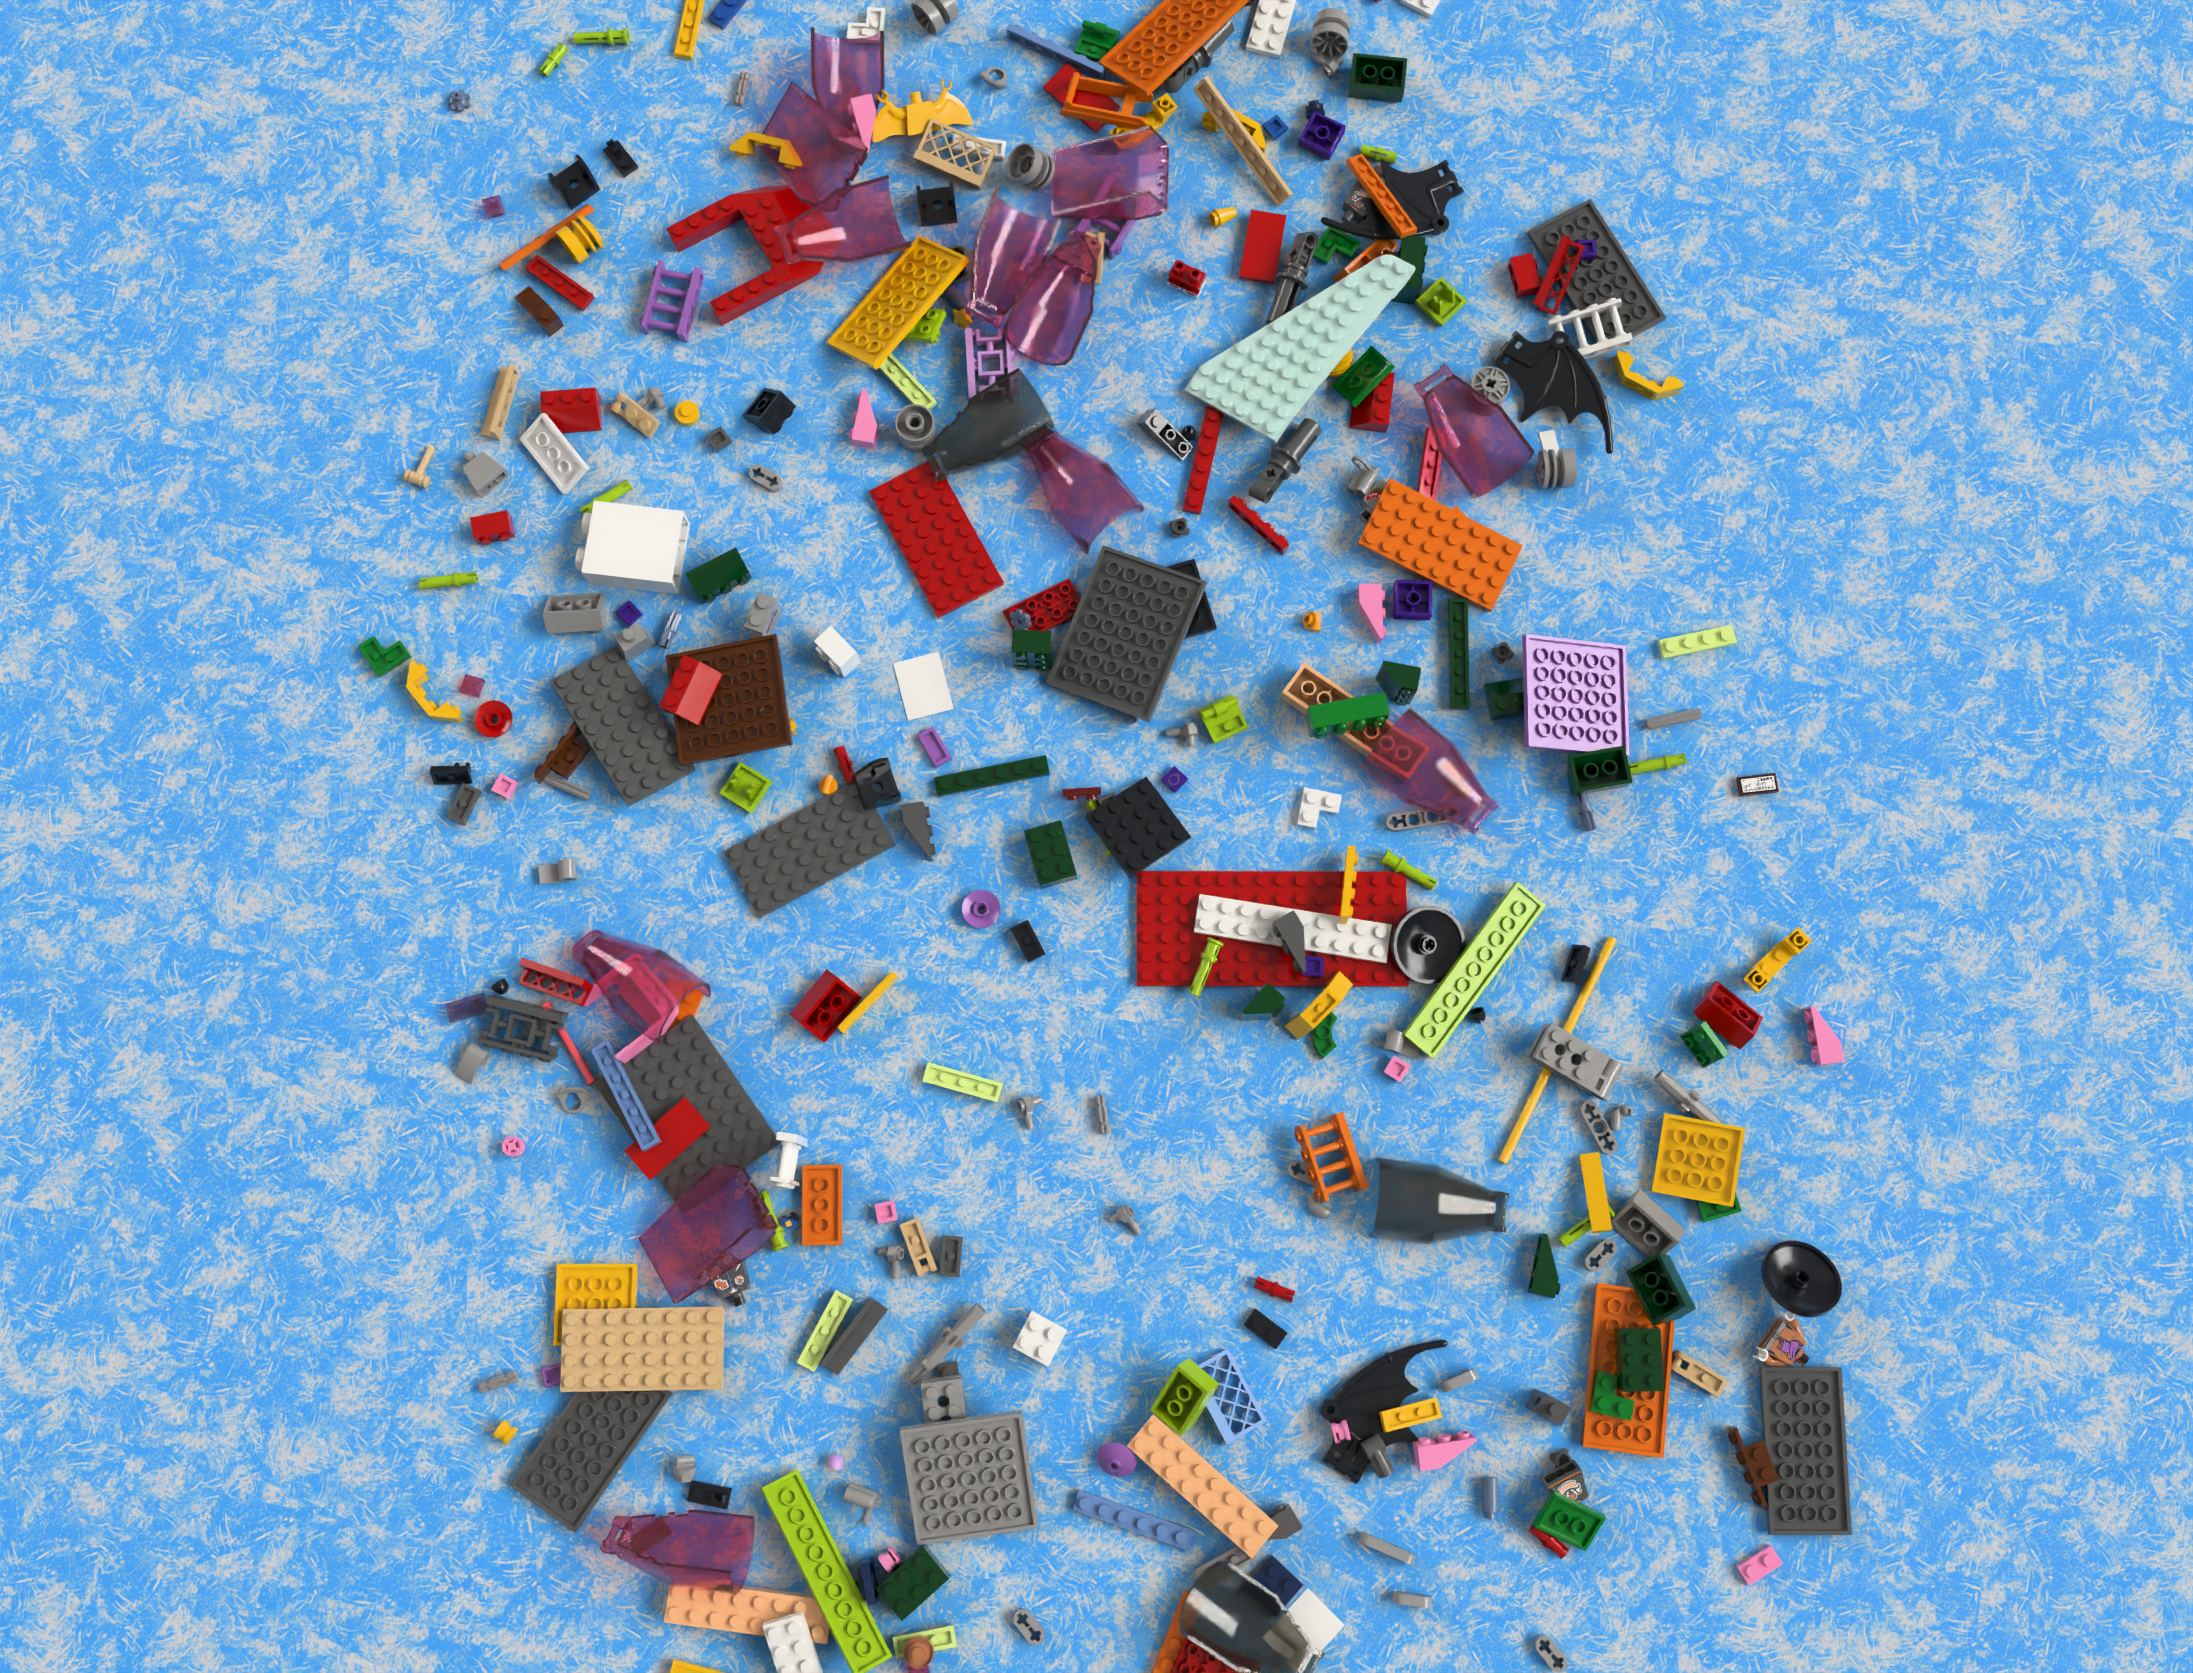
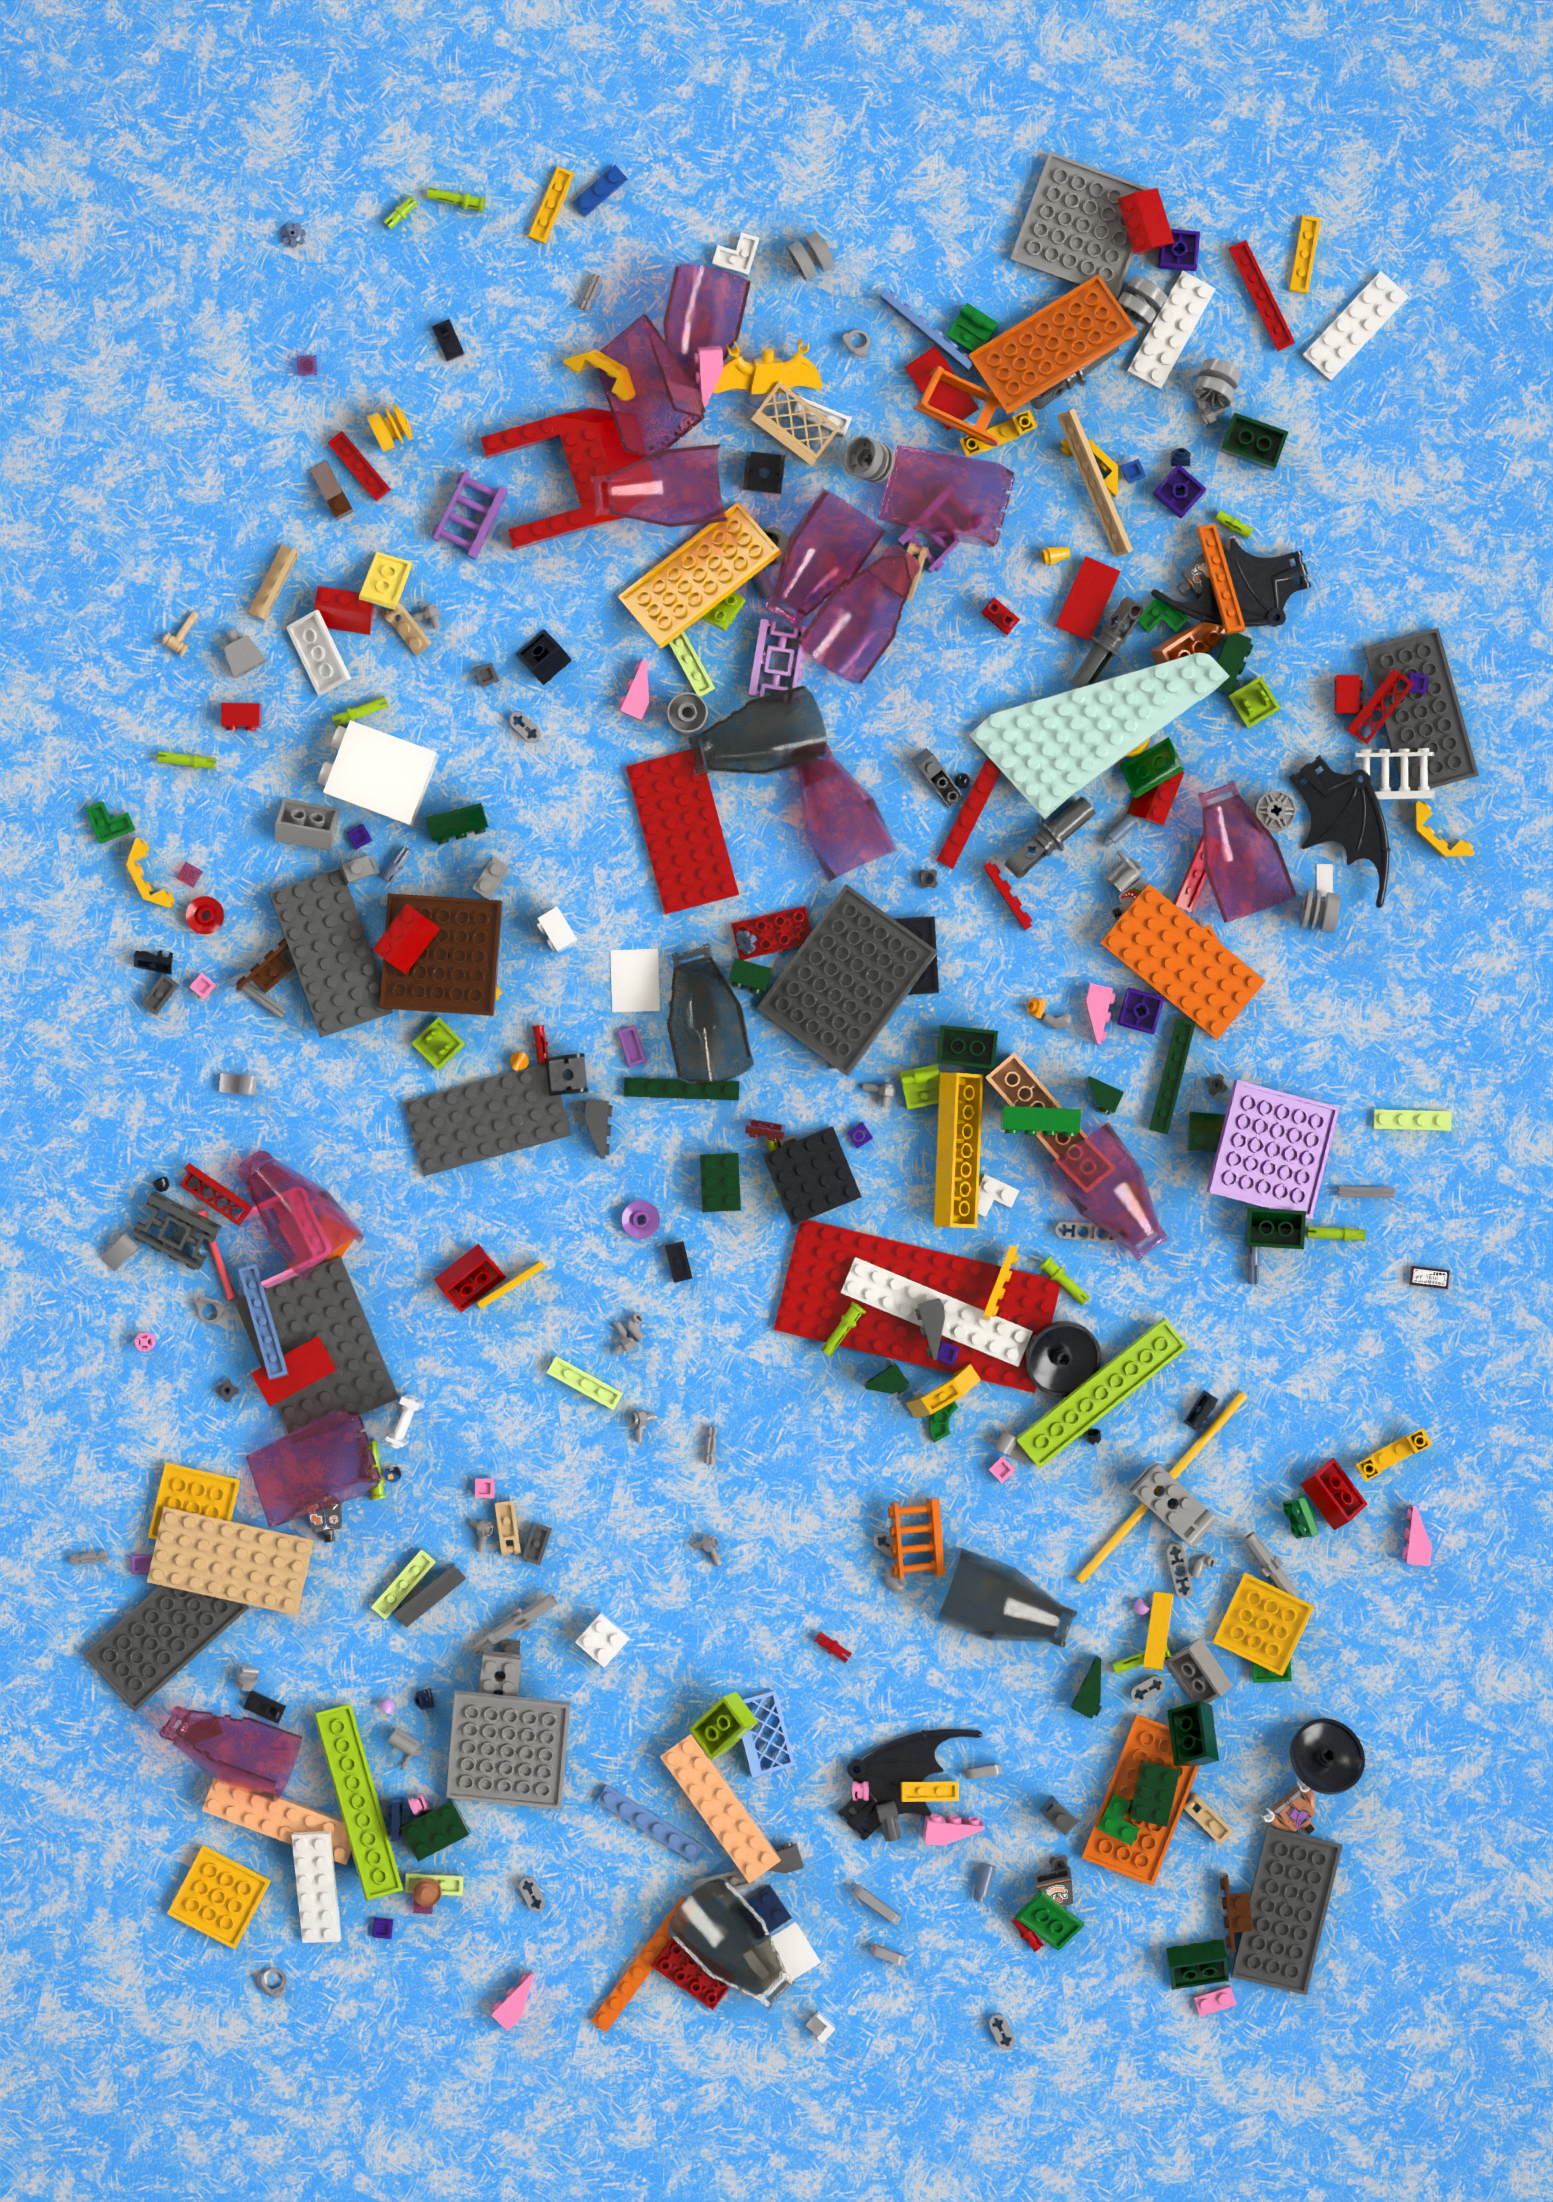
camera: 15 degrees right, 10 degrees up
(466, 1008) = (125, 1197): clear purple plate -> none
(505, 1432) = (87, 1606): yellow wheel -> none
(543, 238) = (355, 413): orange tile -> none
(578, 173) = (407, 364): black hose -> none
(604, 374) = (385, 580): none -> light yellow tile
(612, 1174) = (227, 1385): none -> dark grey plate
(687, 413) = (460, 639): yellow wheel -> none
(822, 1205) = (426, 1467): orange plate -> none
(872, 1446) = (424, 1699): none -> dark blue plate
(962, 318) = (760, 603): yellow plate -> none
(996, 1033) = (628, 1344): none -> light grey piece
(998, 1015) = (633, 1326): none -> light grey arm
(1001, 703) = (706, 1022): none -> clear smoke windscreen
(1116, 1459) = (647, 1766): medium lavender dish -> none
(1256, 670) = (967, 1047): none -> dark green brick
(1265, 1328) = (815, 1680): black plate -> none
(1273, 768) = (958, 1150): none -> yellow brick
(1337, 630) = (1058, 1023): none -> light grey arm
(1348, 442) = (1120, 830): none -> sand blue cylinder
(1570, 1173) = (1141, 1607): none -> lavender hinge
(1731, 1529) = (1197, 1964): none -> dark green slope

